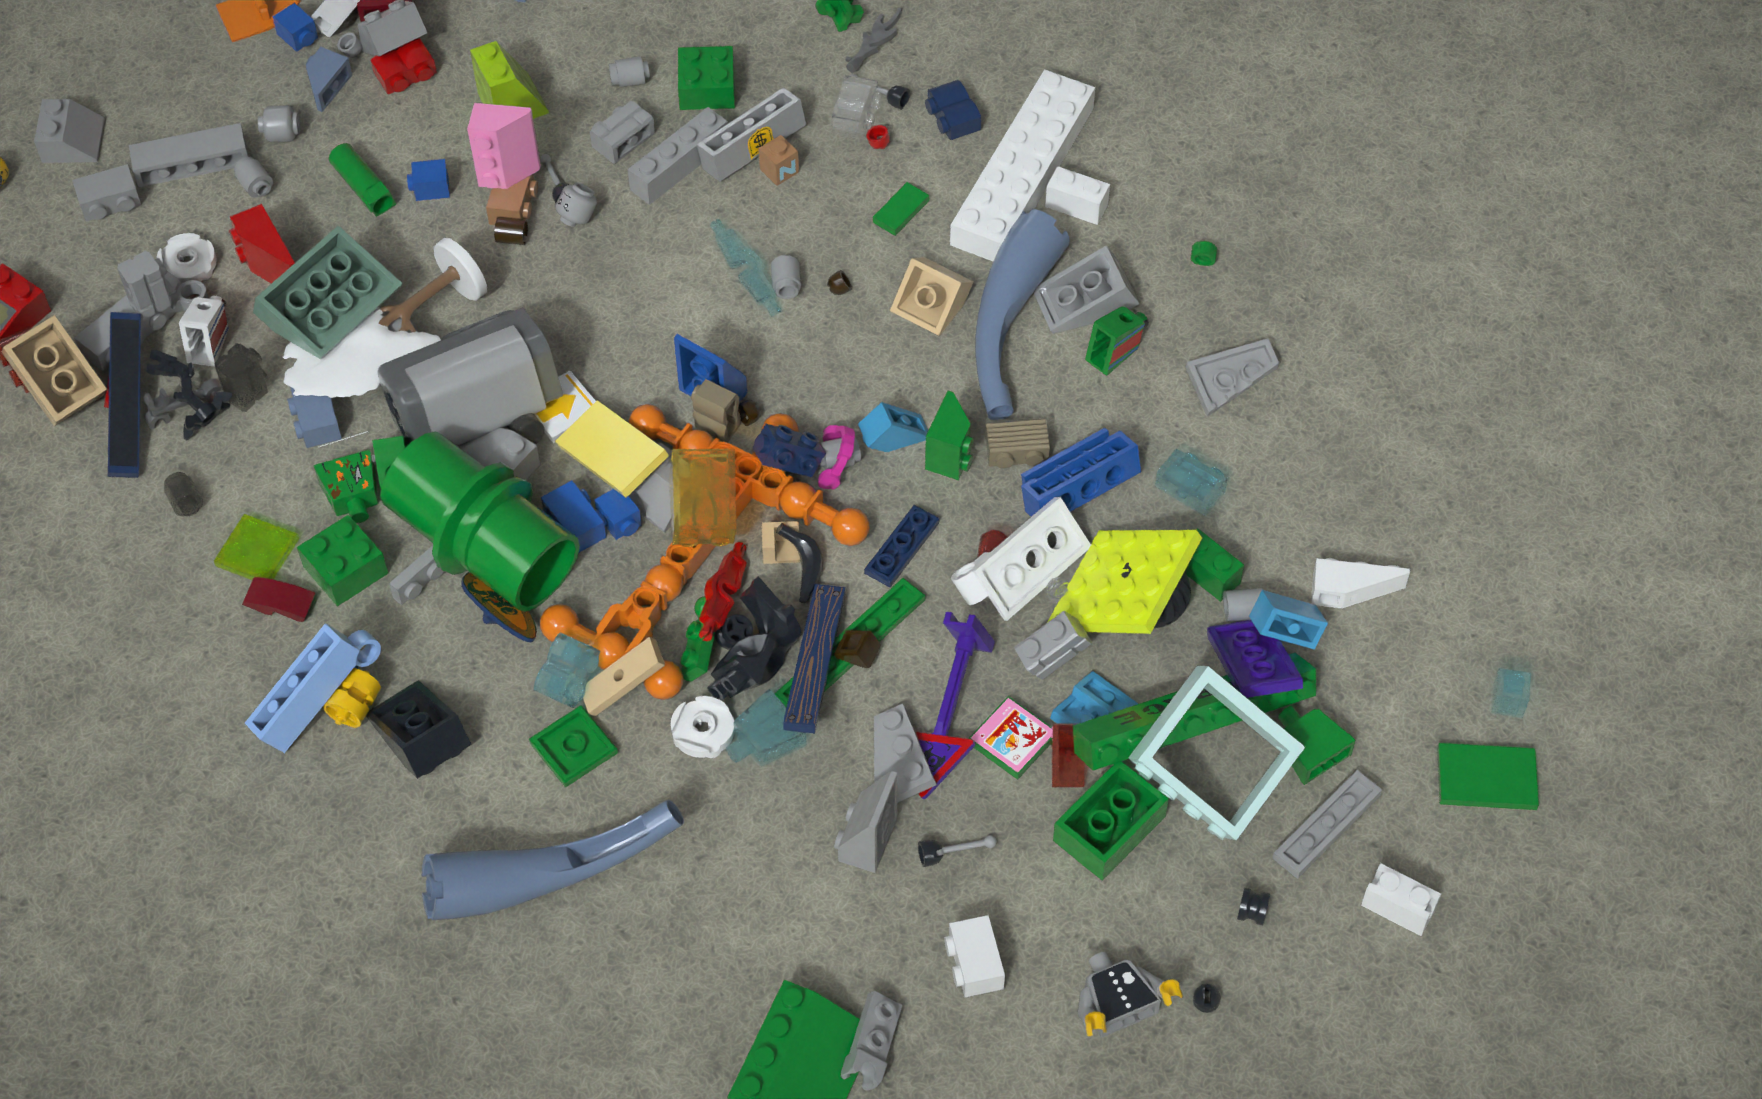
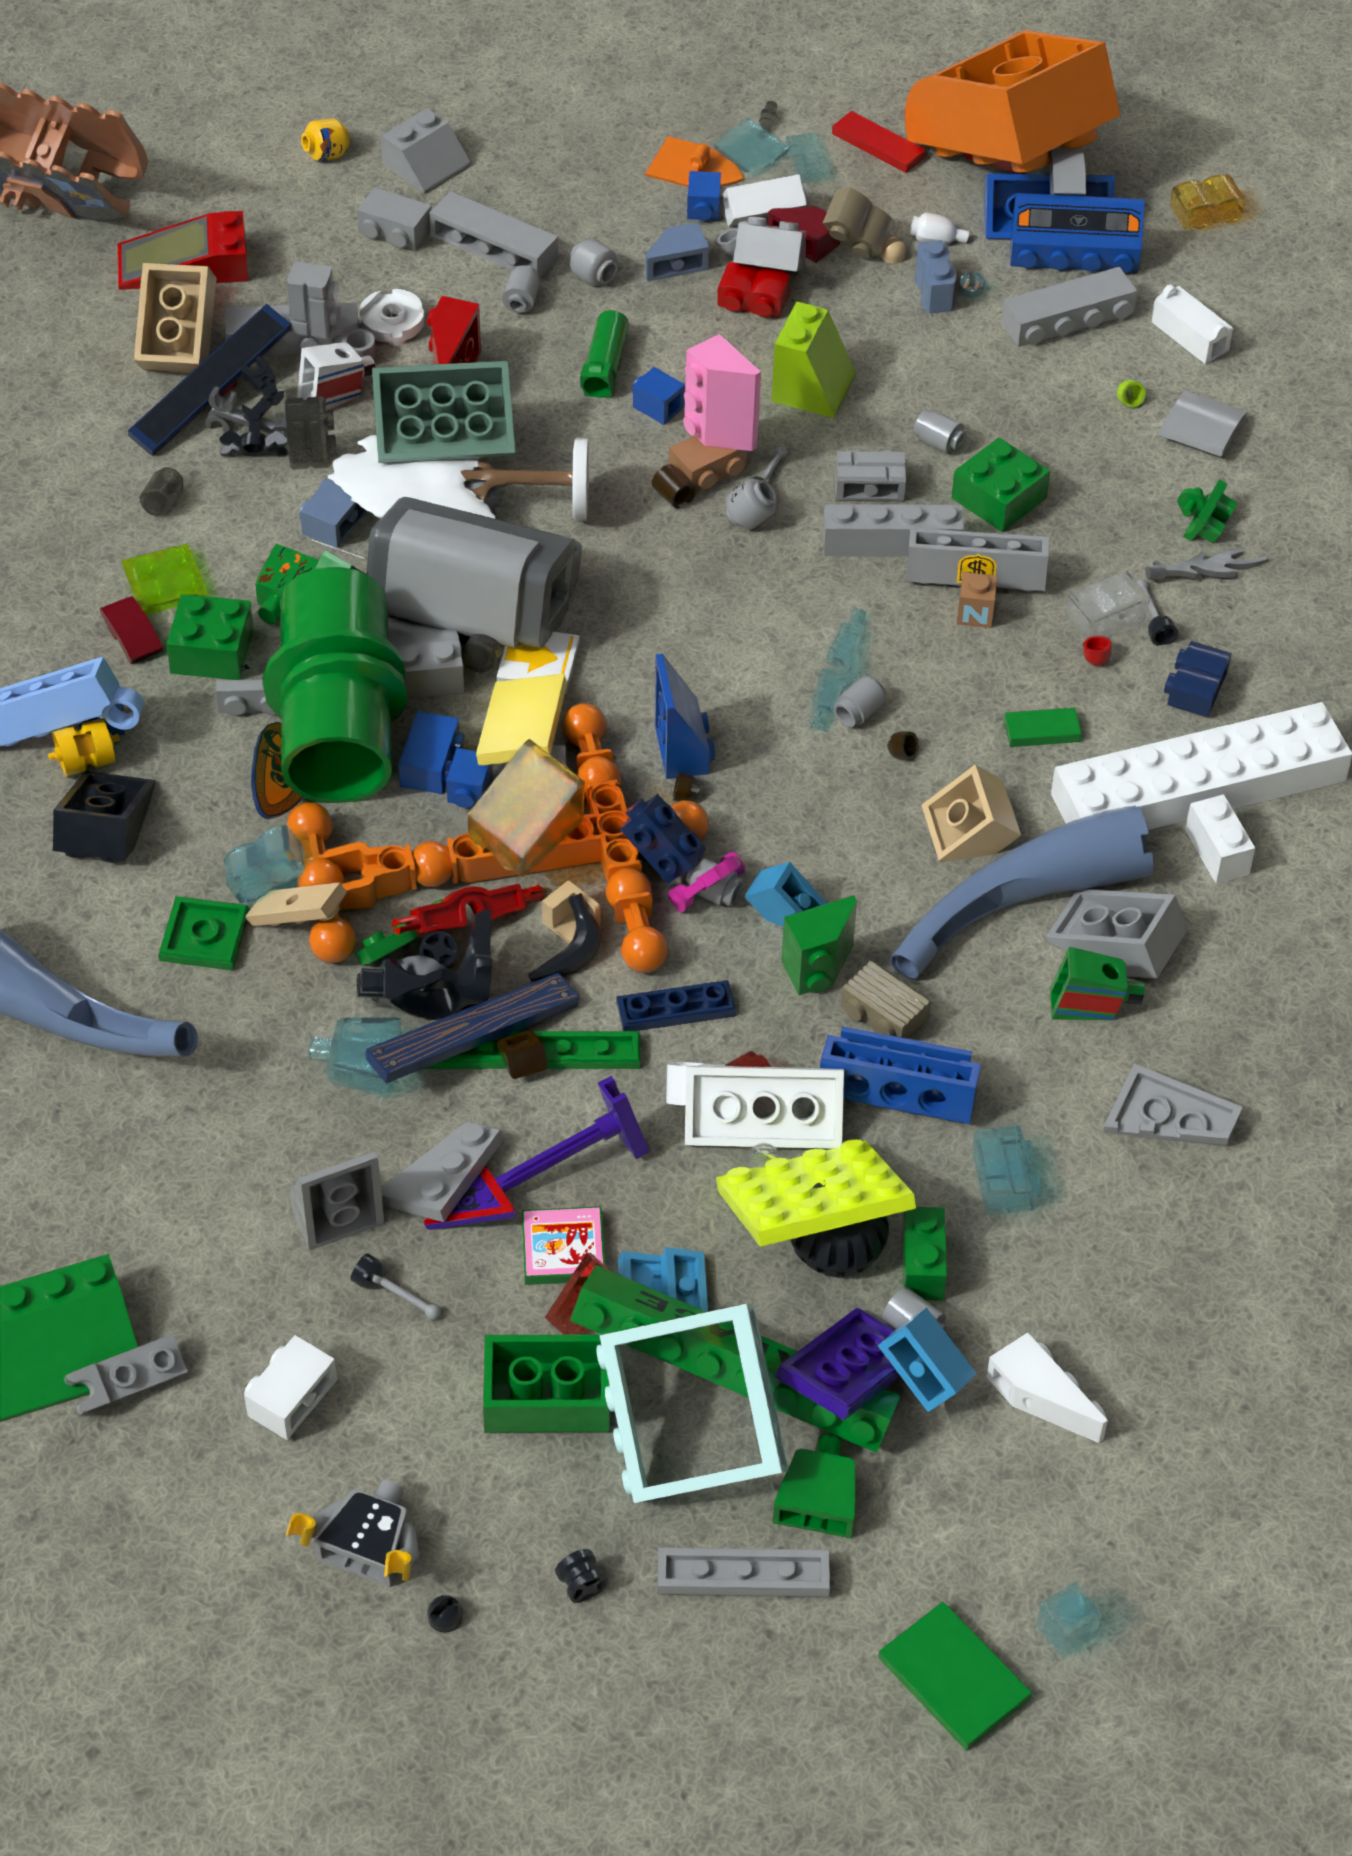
camera: 45 degrees right, 5 degrees down
(705, 743) = (311, 988): white plate -> none
(715, 410) = (647, 758): dark tan brick -> none
(1053, 645) = (684, 1193): light grey brick -> none
(1204, 253) = (1282, 986): green axle -> none
(1401, 899) = (719, 1697): white brick -> none

